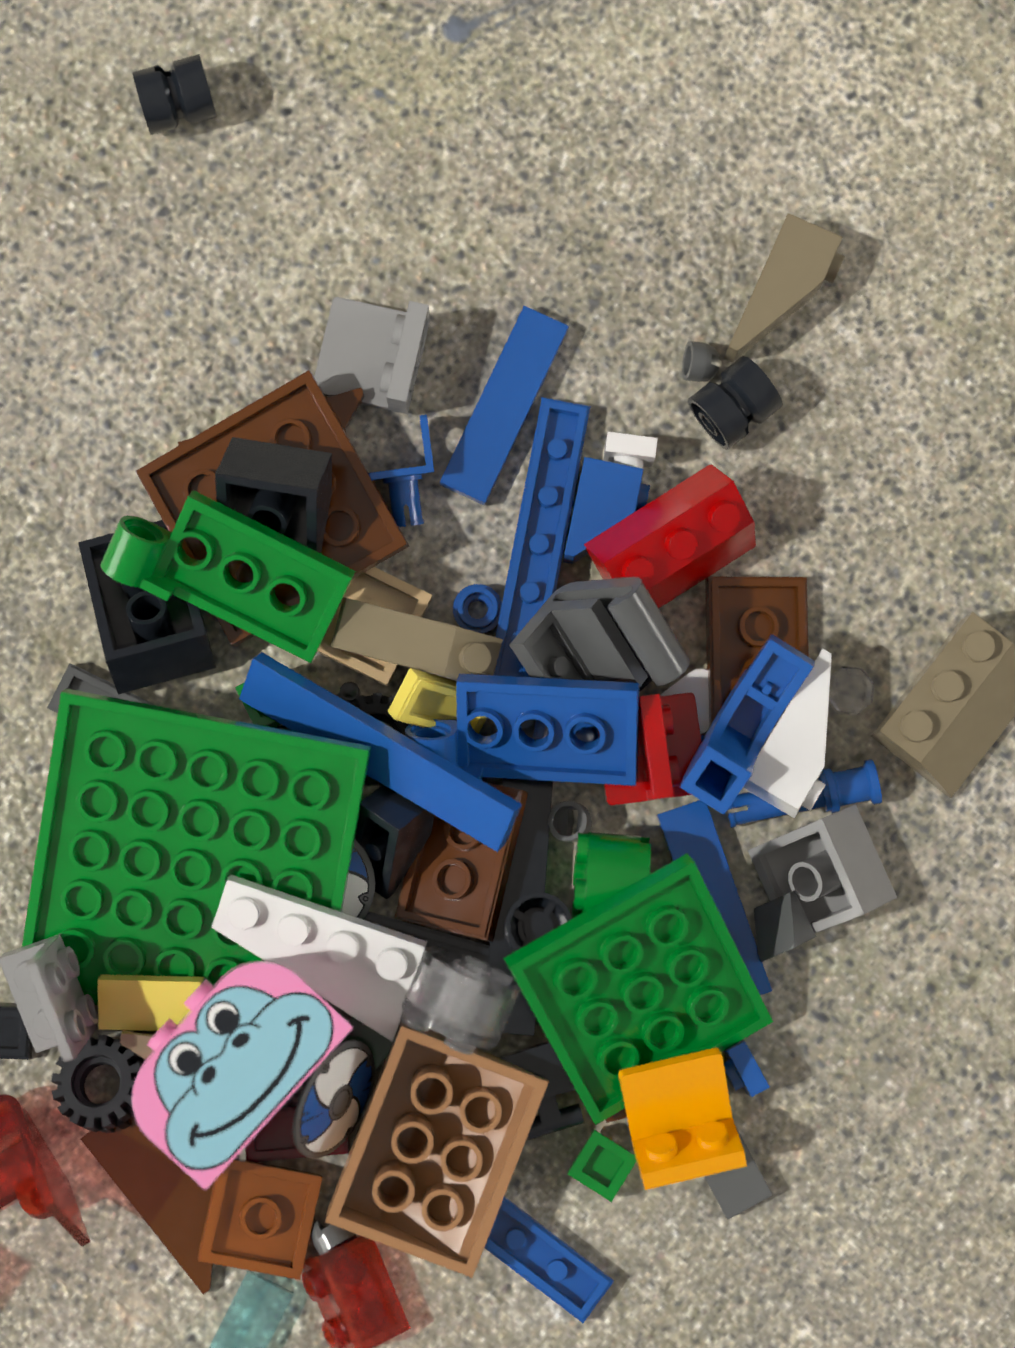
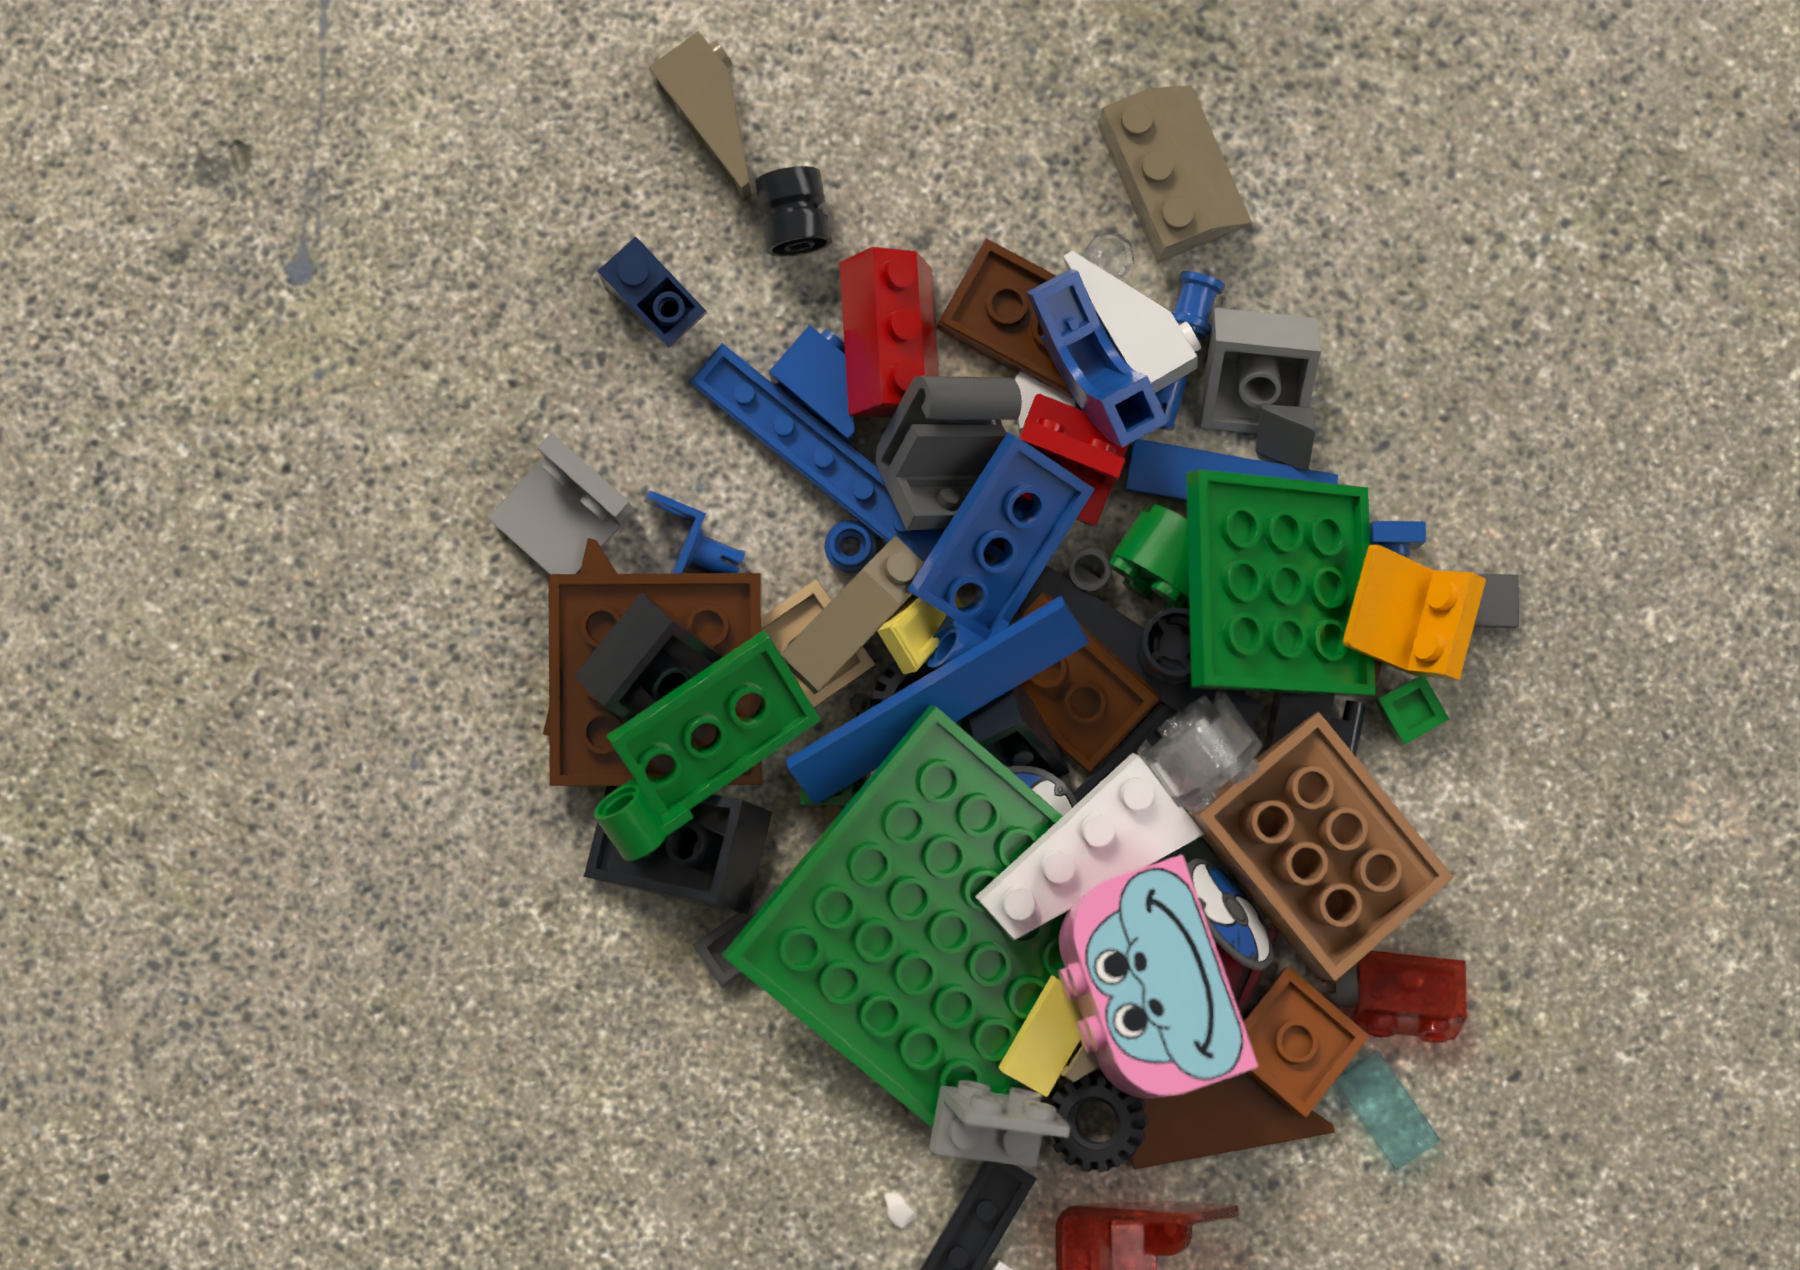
camera: 60 degrees left, 0 degrees up
(174, 94) = (214, 558): black wheel -> none
(504, 405) = (676, 420): blue tile -> none
(546, 1261) = (1473, 805): blue tile -> none
(596, 322) = (650, 293): none -> dark blue slope
(630, 449) = (783, 329): white plate -> none
(697, 362) = (735, 224): dark grey hinge -> none

